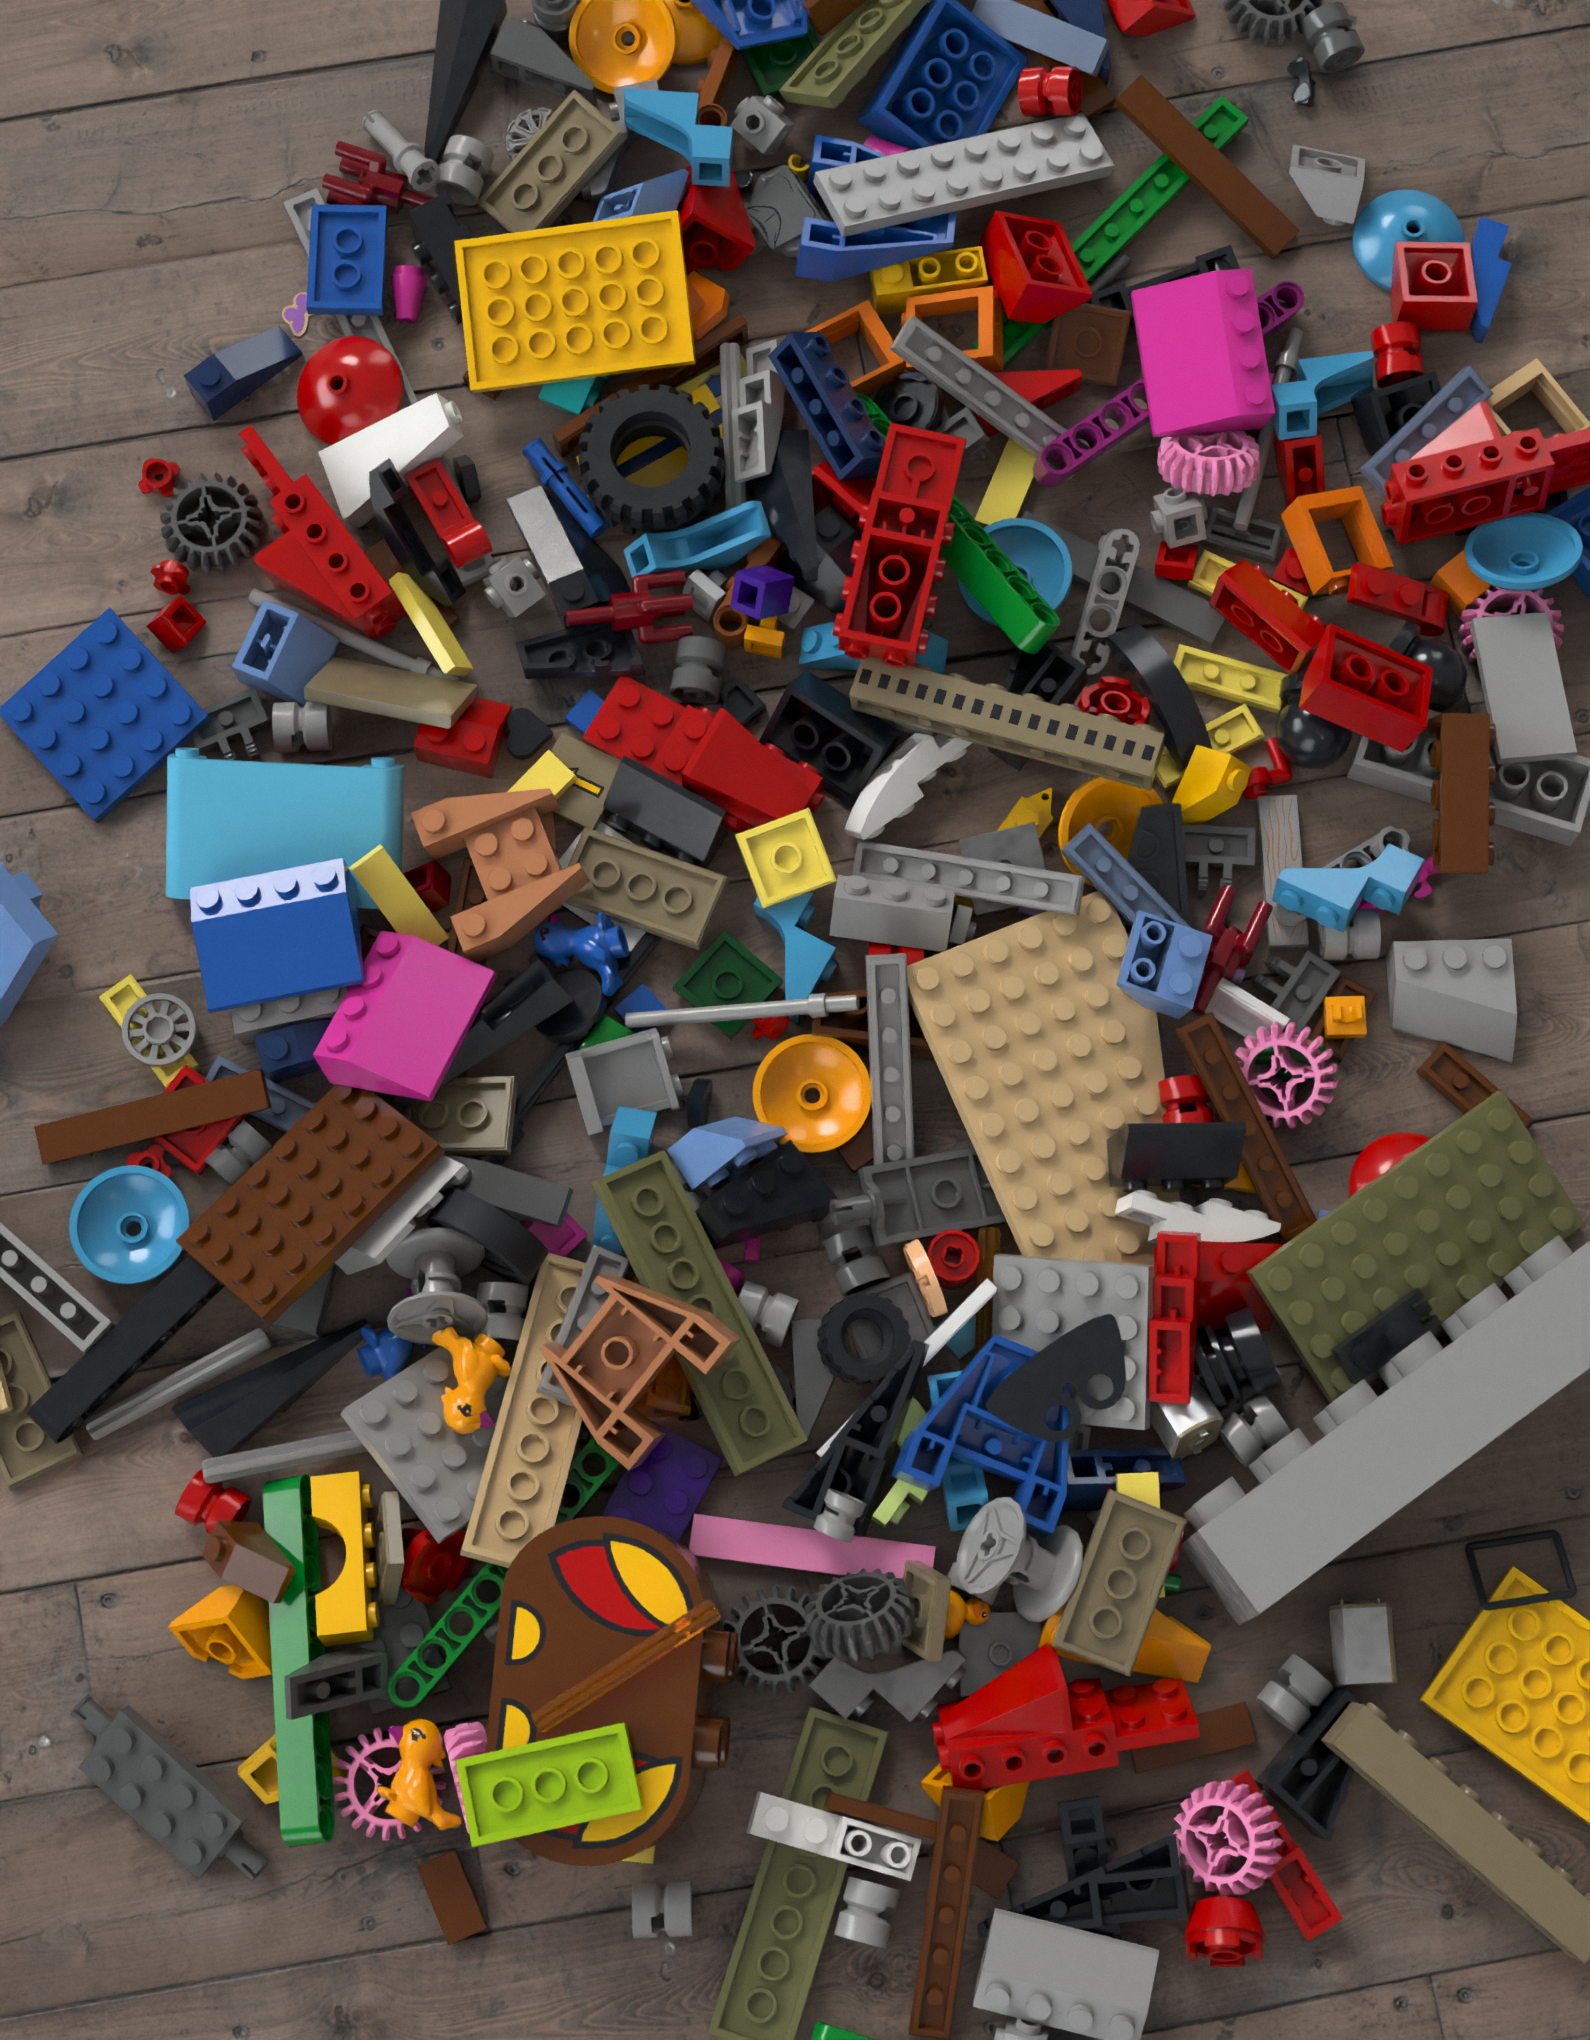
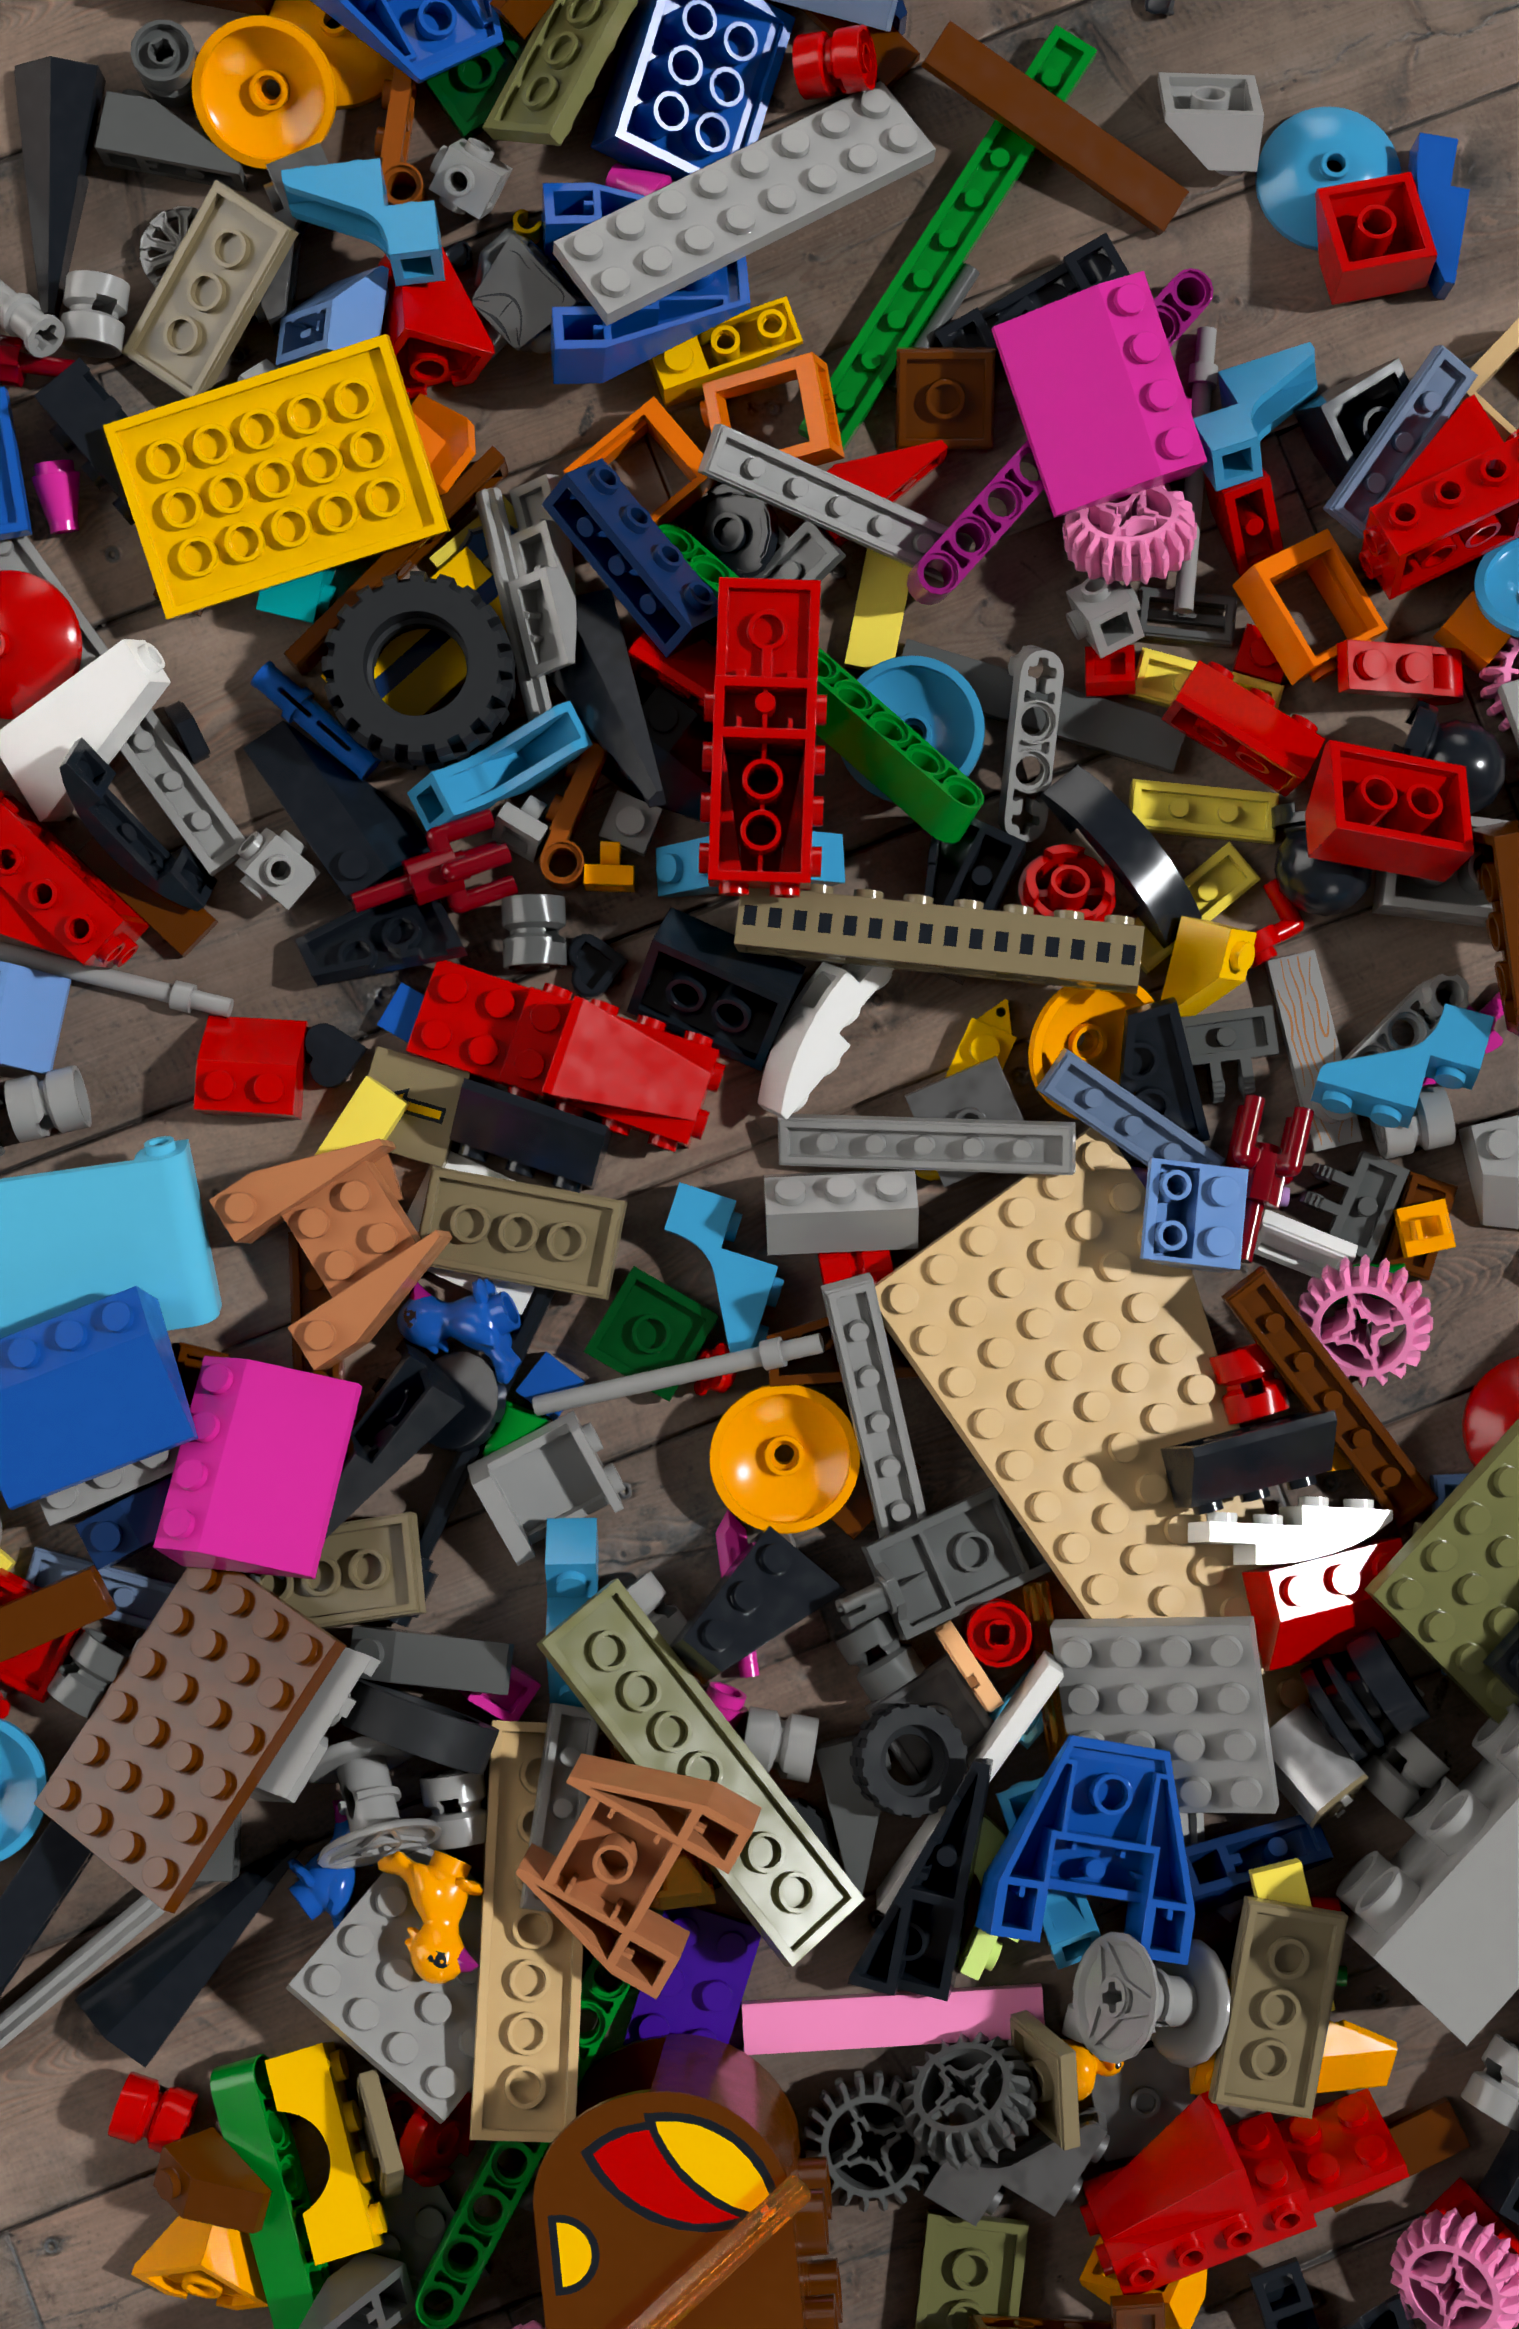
camera: 15 degrees left, 10 degrees up
(281, 1456) = (217, 2045): light grey axle -> none
(391, 692) = (150, 1042): dark tan tile -> none
(396, 897) = (217, 1312): light yellow tile -> none
(431, 626) = (183, 943): light yellow tile -> none
(431, 884) = (249, 1281): dark red slope -> none
(448, 514) = (173, 790): red plate -> none
(699, 1102) = (646, 1491): black tile -> none
(723, 1150) = (691, 1553): medium blue slope -> none
(762, 592) = (595, 820): dark purple brick -> none
(785, 858) = (694, 1166): light yellow tile -> none
(839, 1515) = (921, 1986): light grey wheel -> none
(961, 927) = (931, 1206): light grey plate -> none
(1033, 267) = (858, 312): red slope -> none
(1072, 1358) = (1175, 1749): black piece -> none
(1174, 1317) = (1288, 1670): red slope -> none
(1397, 352) = (1343, 340): red wheel -> none

